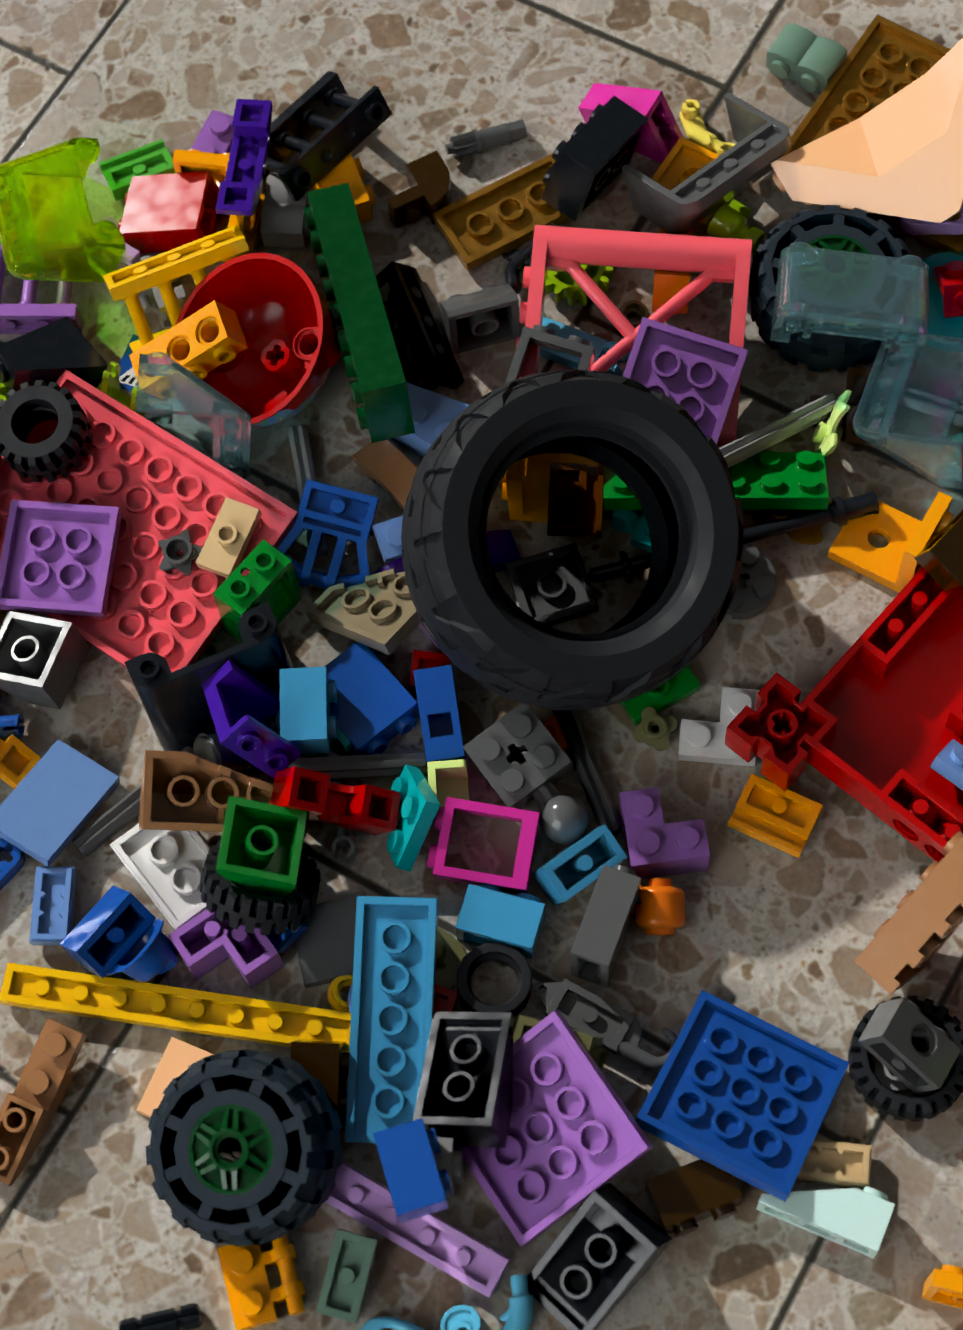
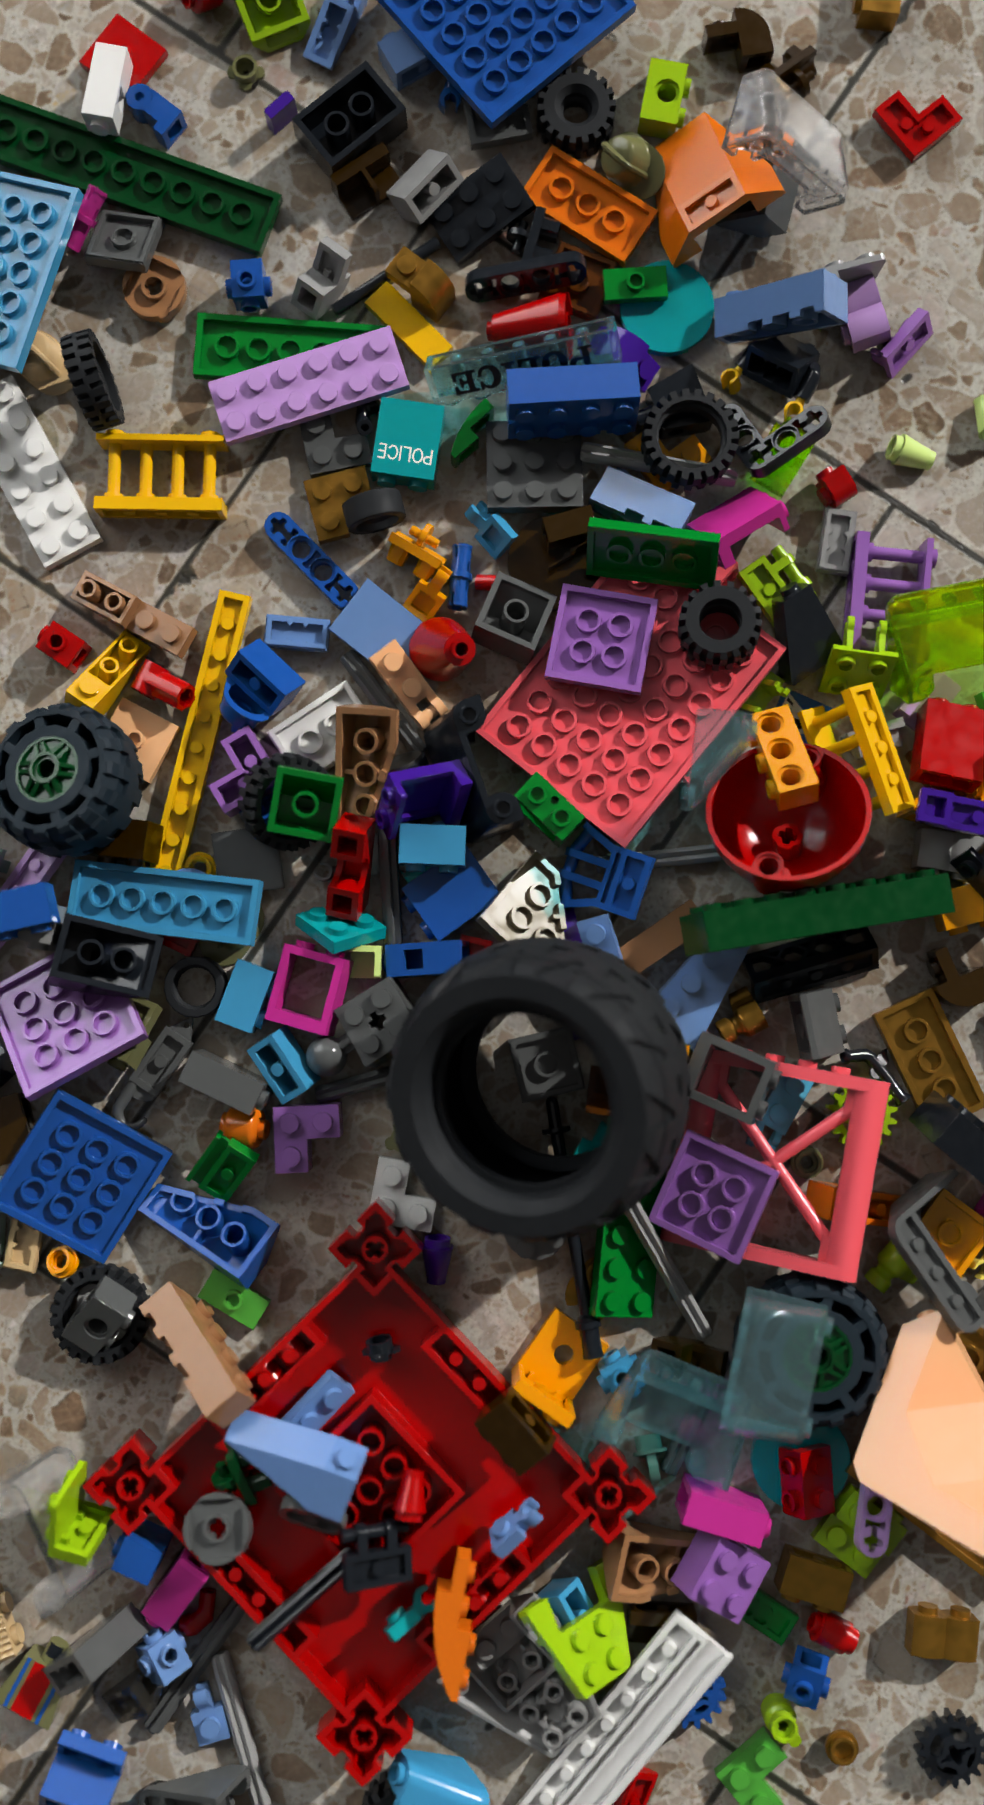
camera: 85 degrees right, 20 degrees up
(71, 725) = (441, 649): none -> red cone
(72, 1190) = (63, 646): none -> red brick
(87, 306) = (855, 667): none -> lime plate
(106, 1128) = (108, 674): none -> yellow slope
(109, 771) = (407, 683): none -> light nougat plate
(117, 1067) = (159, 684): none -> red piece
(172, 546) = (590, 738): dark grey plate -> none
(228, 537) = (604, 787): tan plate -> none
(475, 383) = (746, 1017): none -> pearl gold piece
(710, 925) = (222, 1166): none -> green plate
(775, 815) = (315, 1230): light orange plate -> none
(790, 929) = (222, 1233): none -> blue wedge
(801, 677) = (437, 1257): none -> dark purple cone
(829, 434) = (668, 1324): yellowish green plate -> none
(841, 1118) = (55, 1259): none -> light orange plate
(868, 904) = (234, 1300): none -> bright green plate
(888, 478) = (611, 1365): none -> dark azure brick
(896, 711) = (380, 1348): none -> black plate

